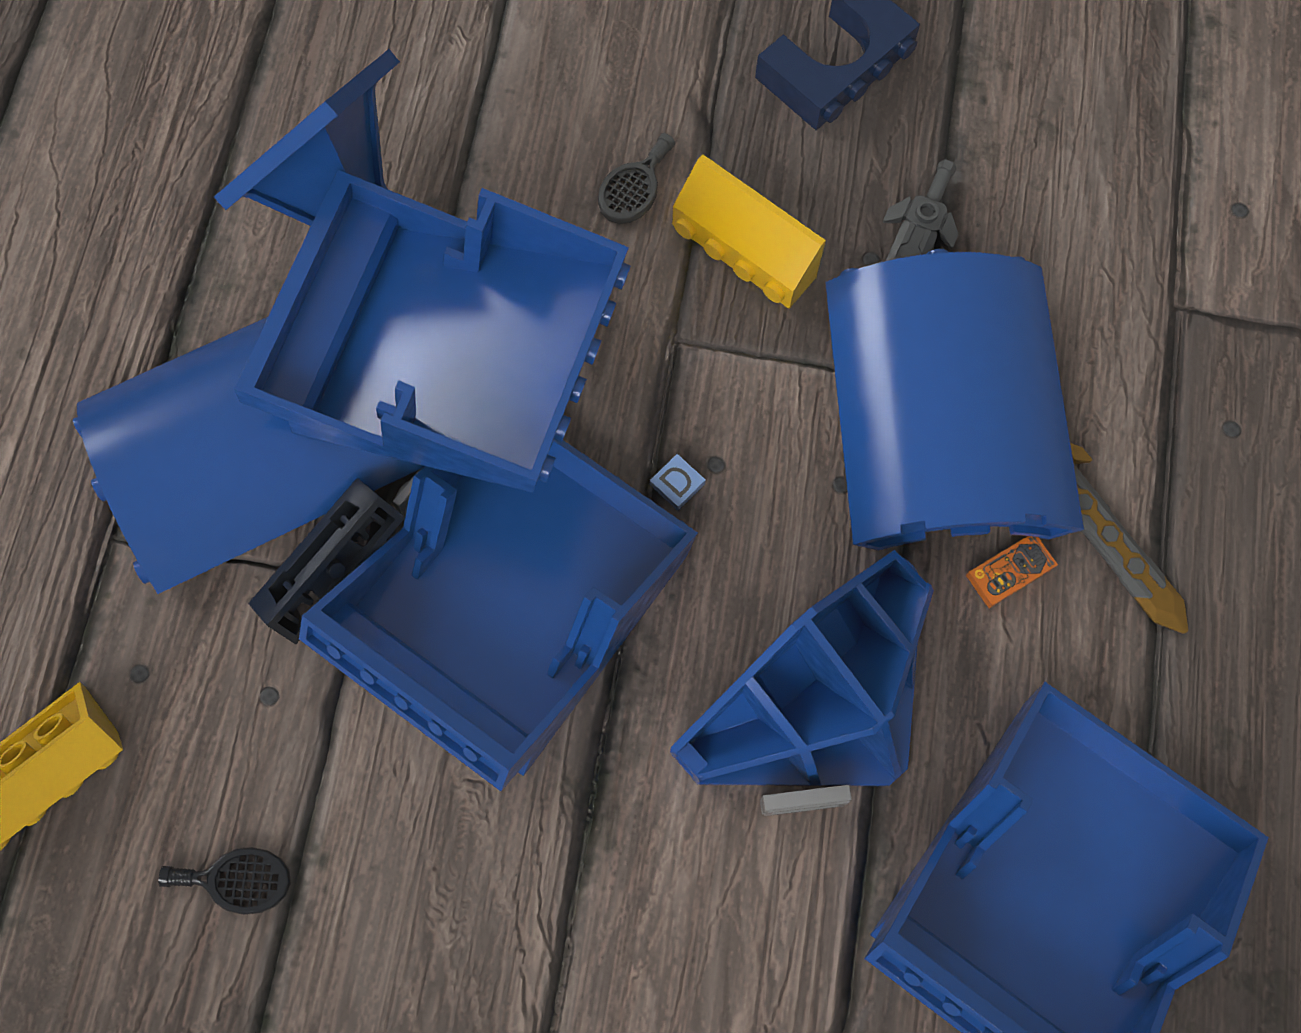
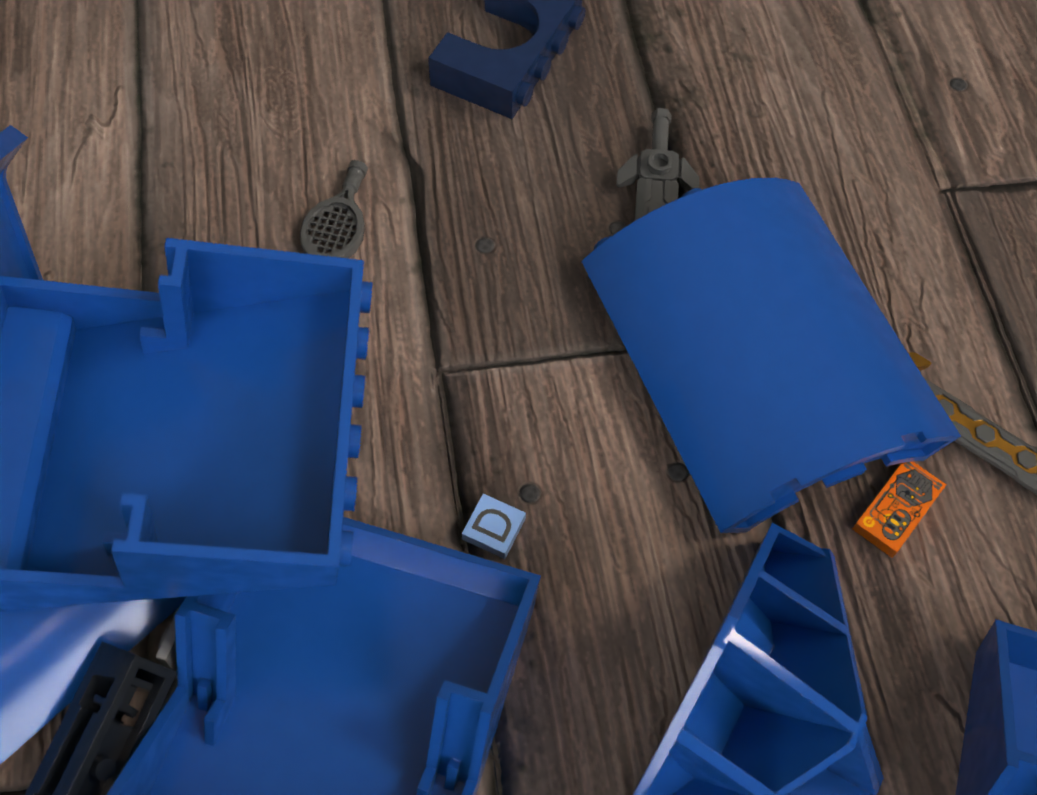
camera: 20 degrees left, 10 degrees down
(747, 232) = (479, 231): yellow slope -> none

